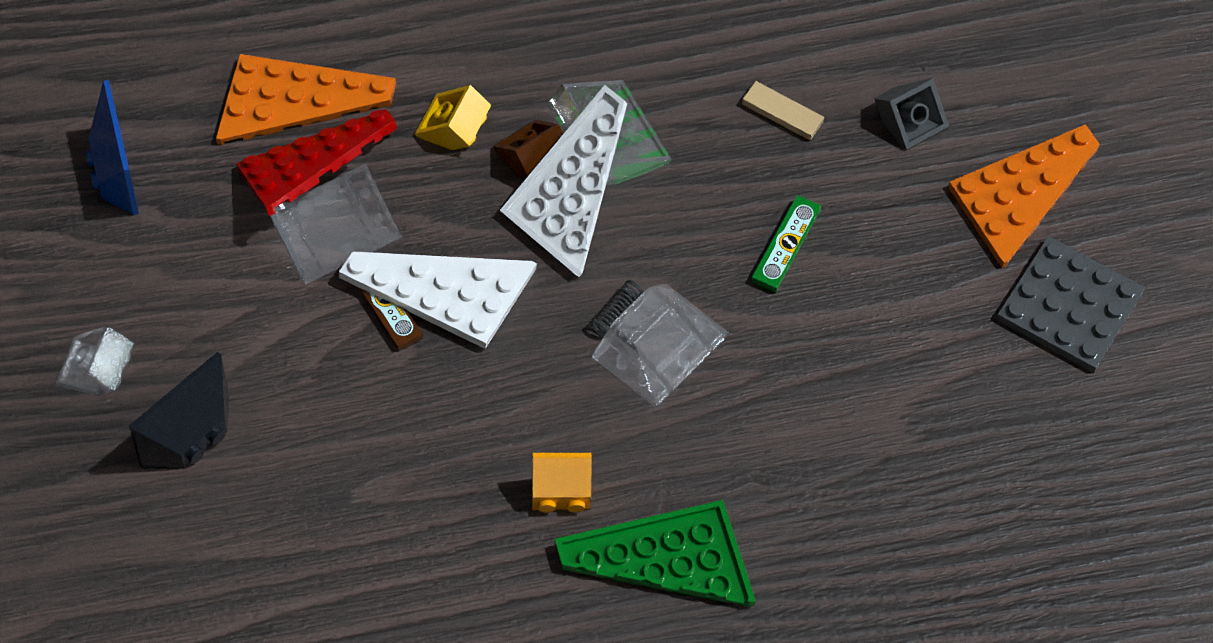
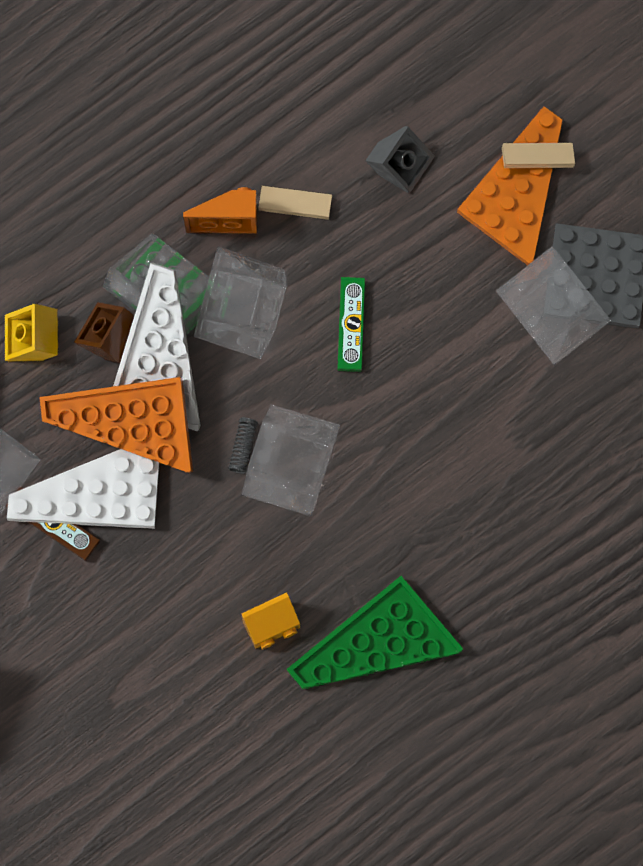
camera: 20 degrees left, 15 degrees up
(516, 232) = (132, 417): none -> orange wing
(679, 174) = (241, 303): none -> clear slope
(704, 86) = (227, 213): none -> orange slope
(1011, 310) = (553, 305): none -> clear slope
(1058, 163) = (538, 155): none -> tan tile

